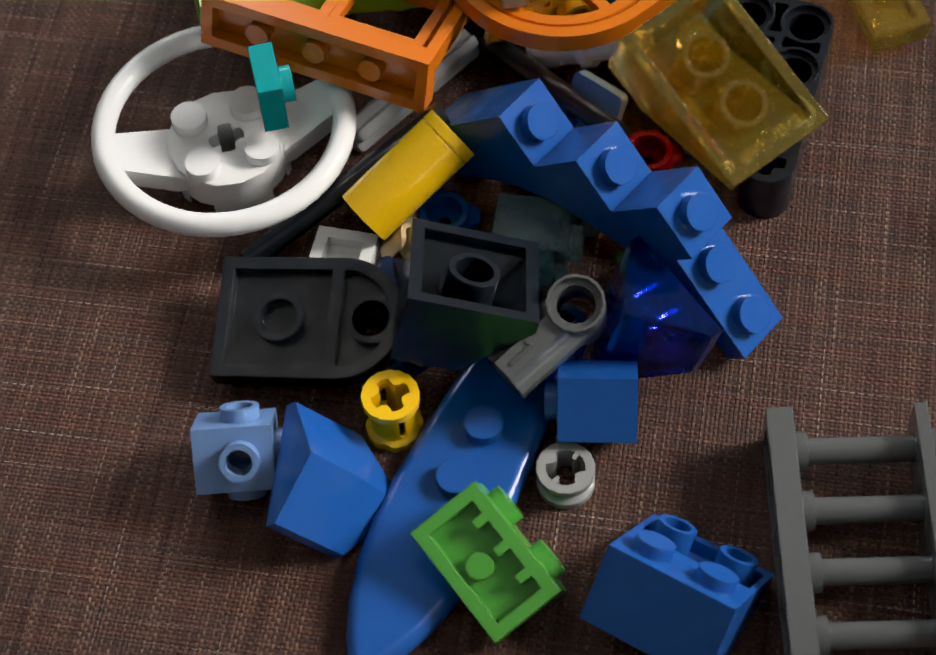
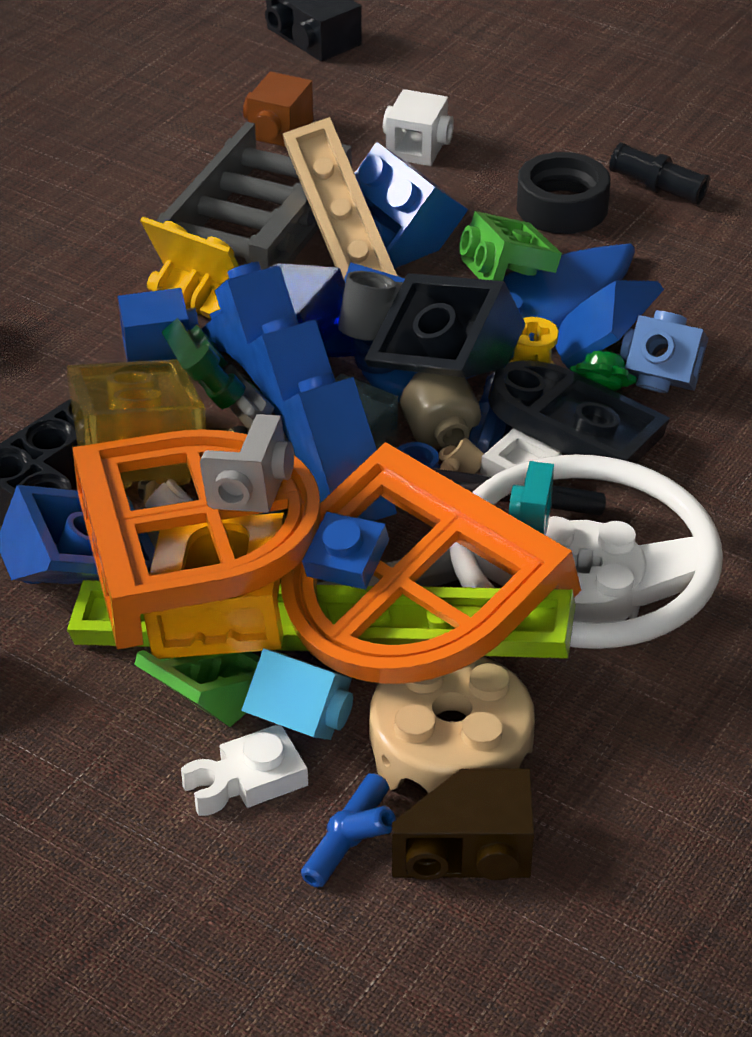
camera: 160 degrees left, 15 degrees down
(305, 390) = (605, 369): none -> green plant
(407, 175) = (442, 441): yellow pin -> none
(724, 507) = (336, 197): none -> tan plate
(751, 226) = (203, 363): none -> dark green plate
(821, 283) = (146, 316): none -> blue brick
(827, 355) = (189, 264): none -> yellow hinge

